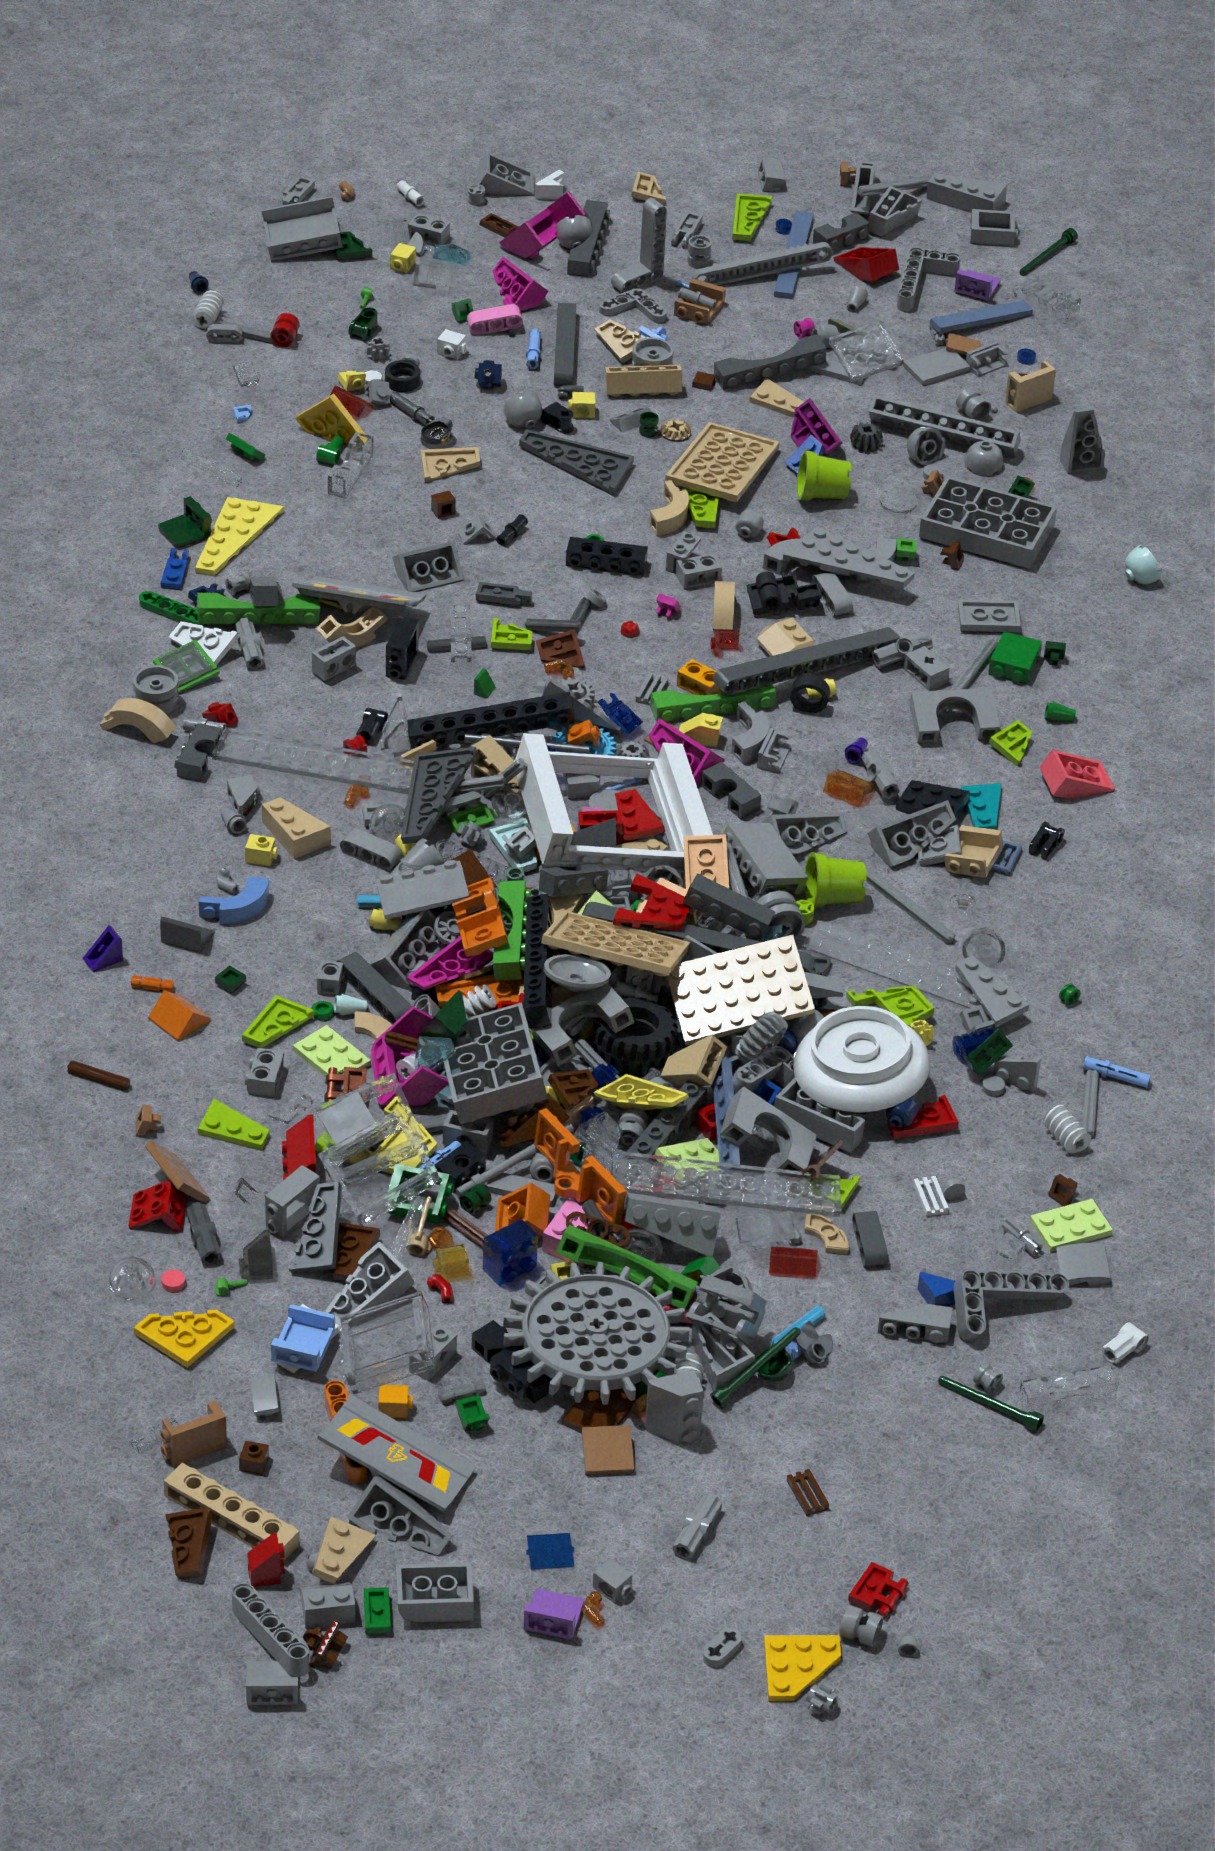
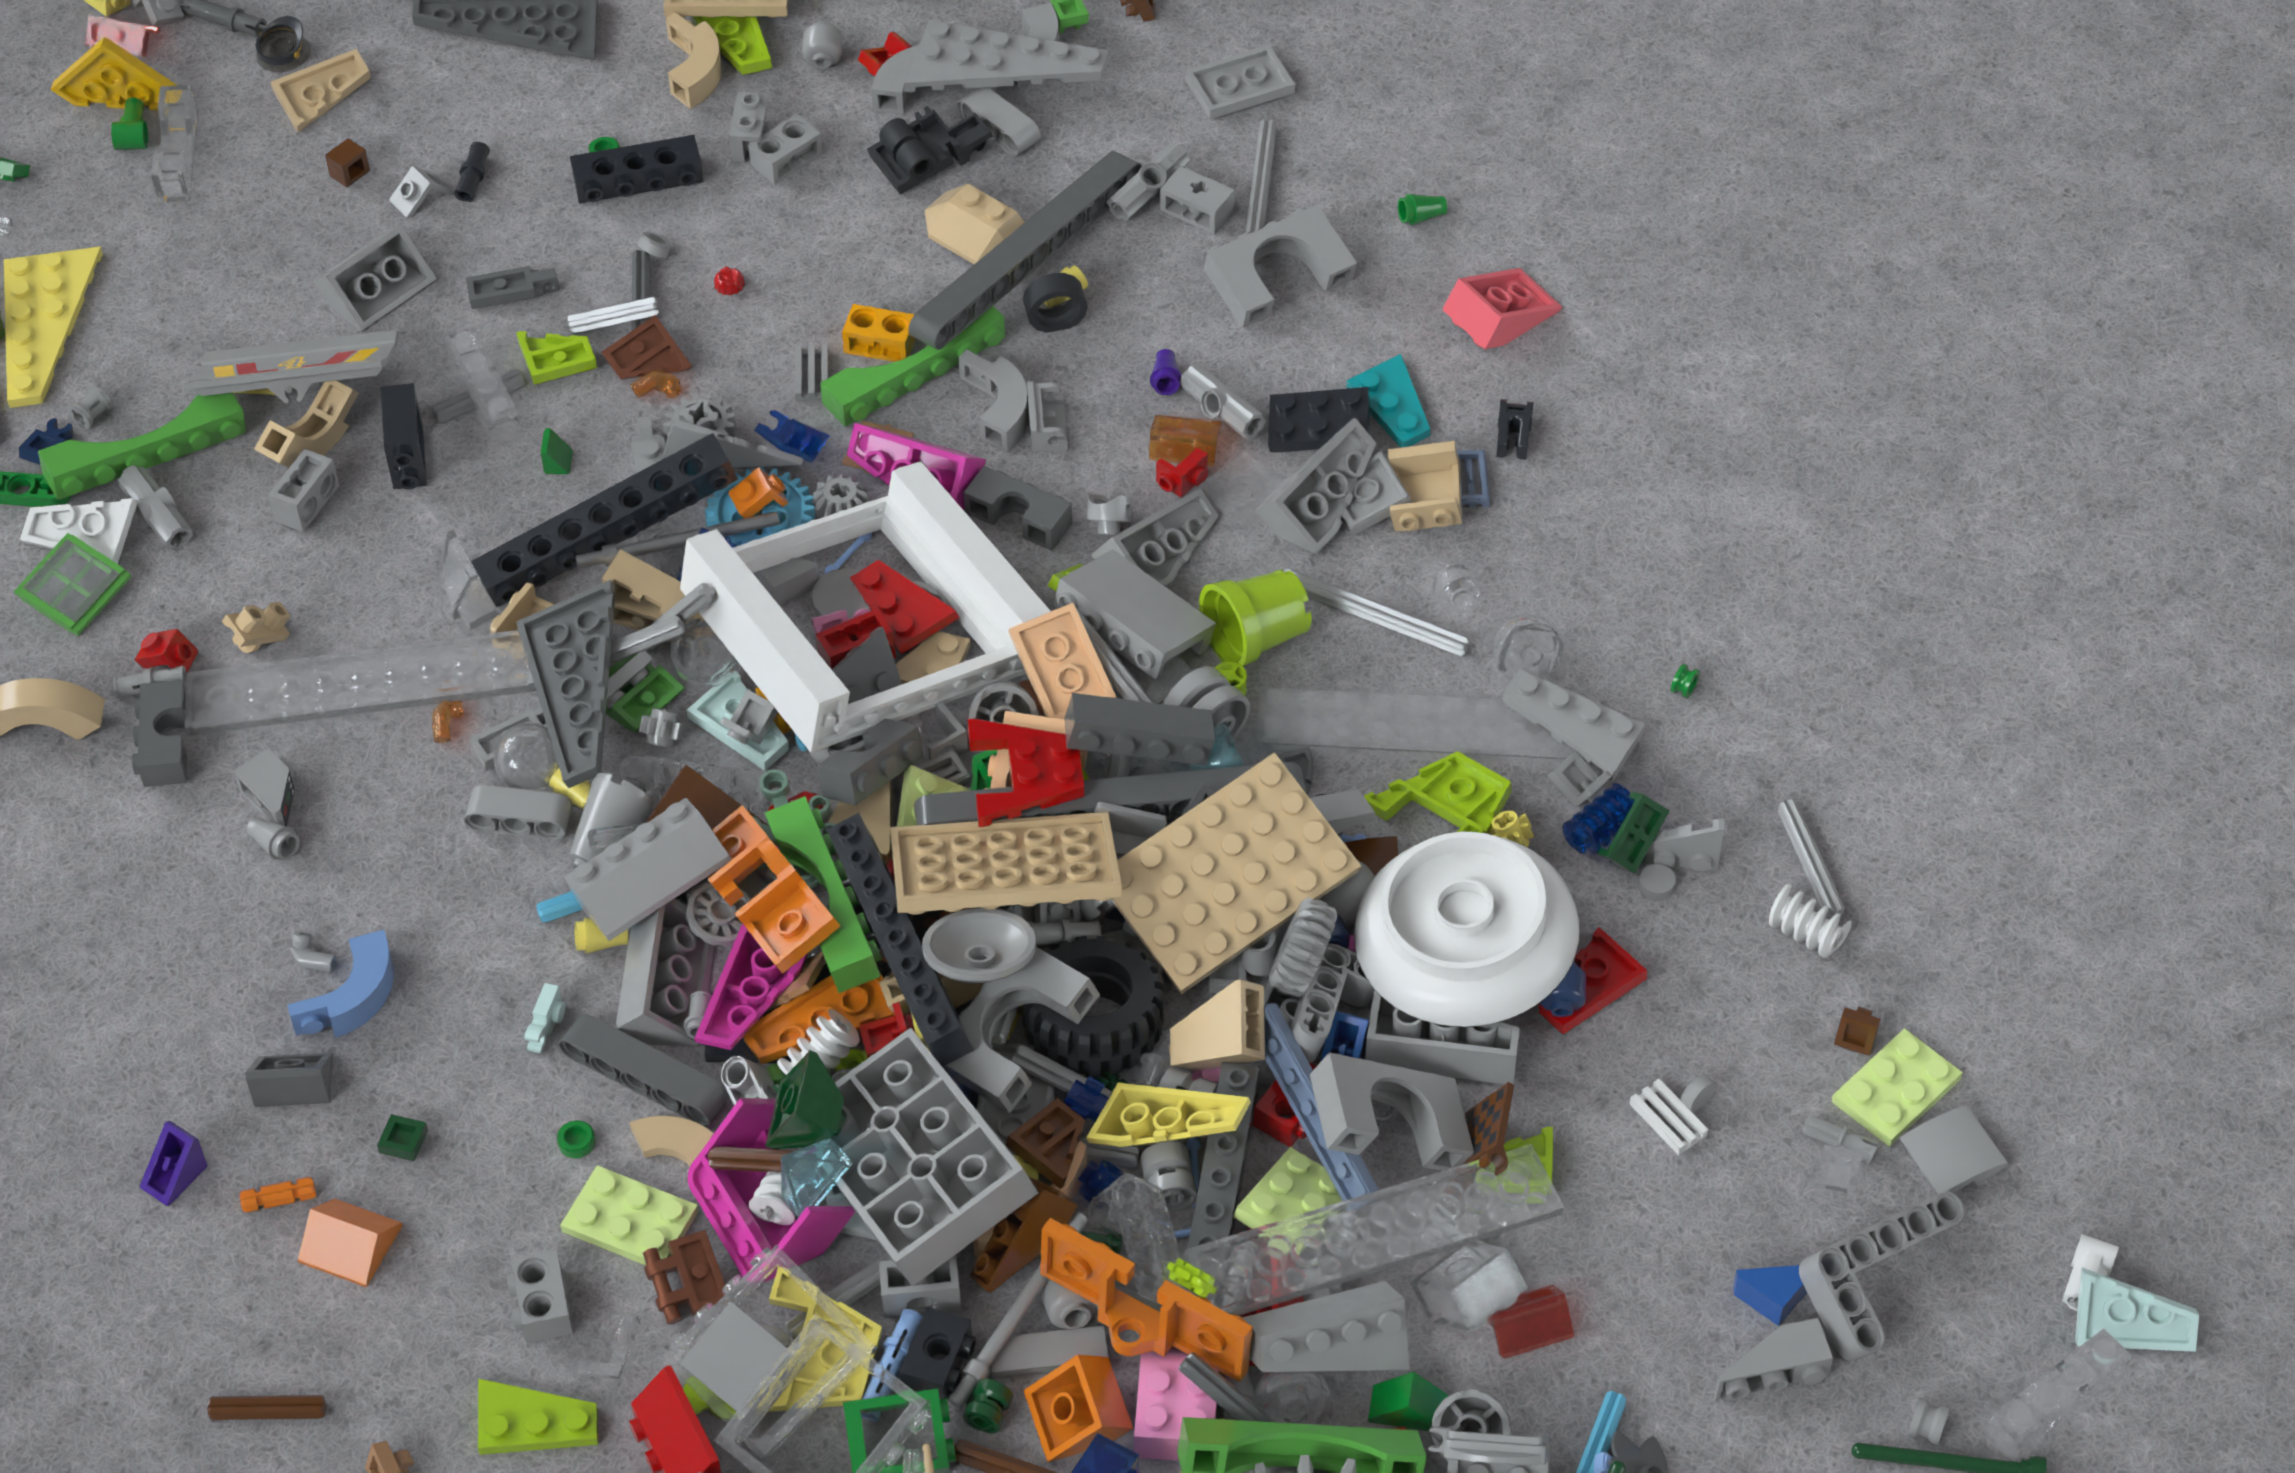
camera: 20 degrees left, 10 degrees up
(157, 686) = (44, 643): light grey wheel -> none
(260, 850) = (344, 878): light yellow brick -> none
(265, 591) = (145, 412): dark grey brick -> none
(273, 716) = (258, 626): none -> tan hips
(275, 1021) = (511, 1190): lime wing -> none
(295, 828) = (379, 817): tan wedge -> none
(329, 978) = (567, 1087): light grey brick -> none
(336, 946) = (547, 1012): none -> light aqua plate
(347, 1005) = (615, 1114): light aqua cone -> none
(357, 743) = (408, 631): red wheel -> none
(372, 723) = (414, 585): black piece -> none
(608, 1162) = (1191, 1278): none -> lime axle
(617, 1229) = (1256, 1394): reddish brown beam -> none
(667, 603) = (767, 220): dark pink tile -> none
(703, 729) = (924, 416): light yellow slope -> none
(723, 605) = (855, 195): tan arch -> none
(724, 640) = (881, 252): clear red bracket -> none
(830, 1235) = (1555, 1247): tan tile -> none
(837, 803) = (1185, 475): none -> red bracket
(870, 1238) = (1623, 1233): dark grey beam -> none
(1012, 741) = (1381, 279): lime wing -> none
(1015, 657) = (1314, 139): green brick -> none
(1054, 651) = (1364, 110): dark green tile -> none
(1117, 1072) = (1779, 790): light blue pin -> none
(1135, 1368) = (2133, 1315): none -> light aqua wing

